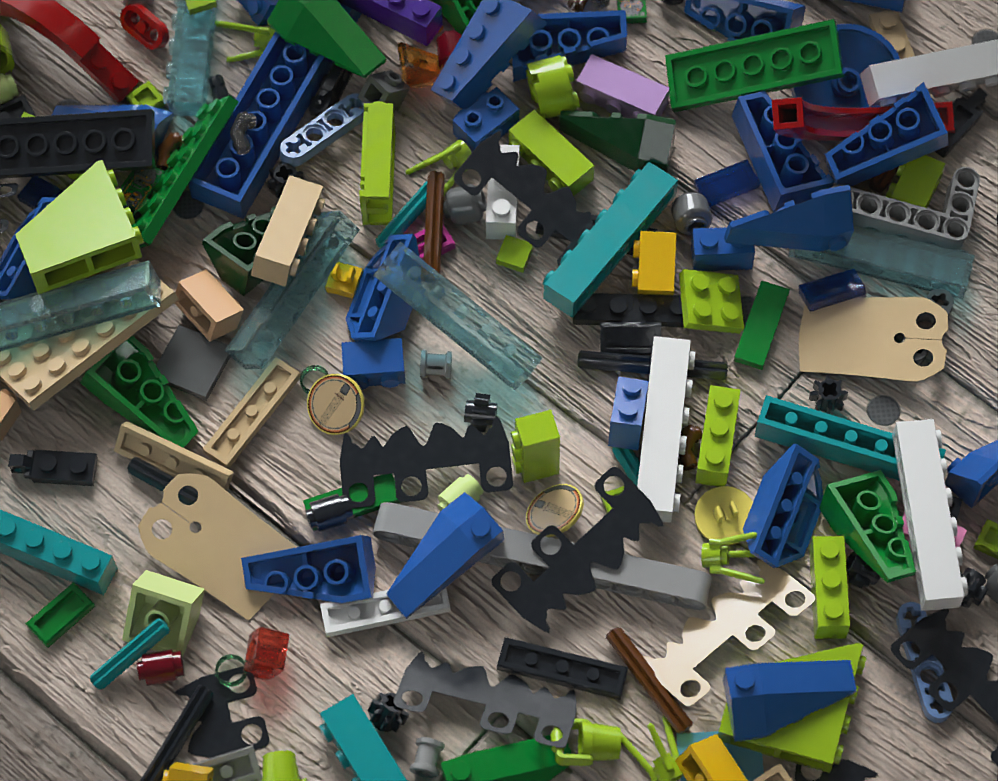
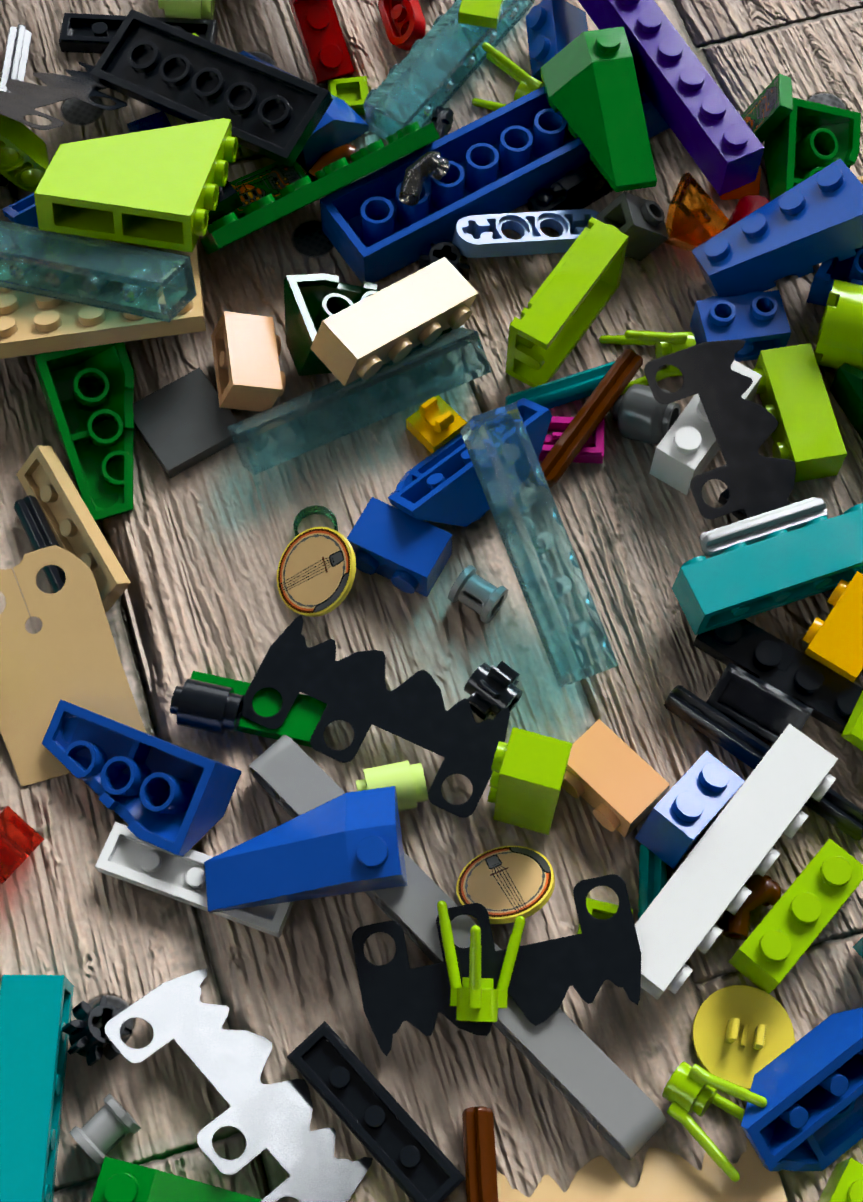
camera: 30 degrees right, 0 degrees up
(251, 413) = (208, 523): tan plate -> none
(514, 253) = (672, 511): lime tile -> none
(570, 237) = (759, 526): none -> light grey axle
(579, 421) = (612, 779): none -> light nougat brick
(580, 571) = (475, 996): none -> lime plant

